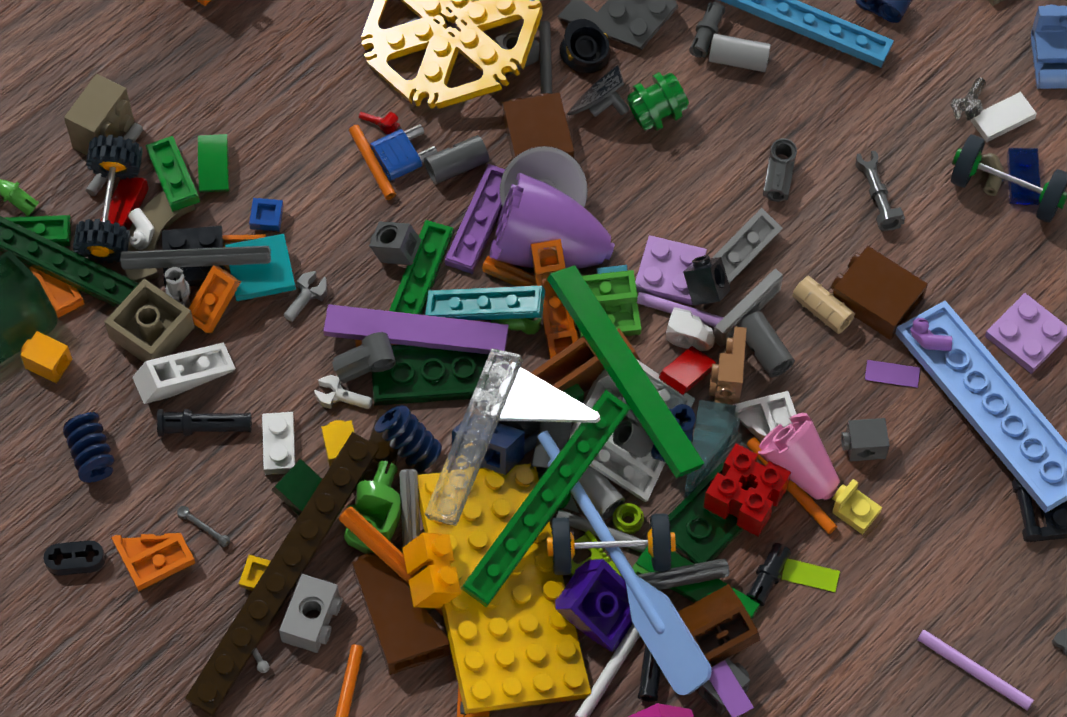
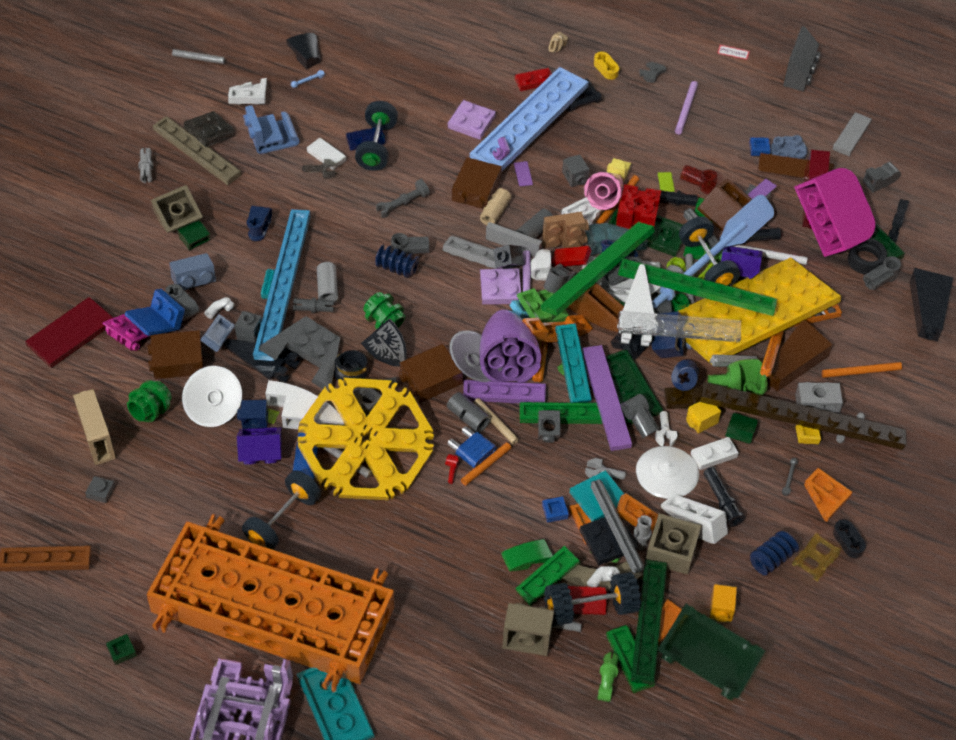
camera: 110 degrees left, 10 degrees down
(57, 508) = (823, 560): none -> clear yellow piece
(276, 376) = (667, 472): none -> white hat
(435, 193) = (497, 422): none -> tan piece
(439, 580) = (766, 328): light orange piece -> none
(652, 343) = (557, 277): none -> dark grey piece
(750, 143) = (396, 263): none -> dark blue piece
(799, 619) = (704, 179): none -> clear red piece

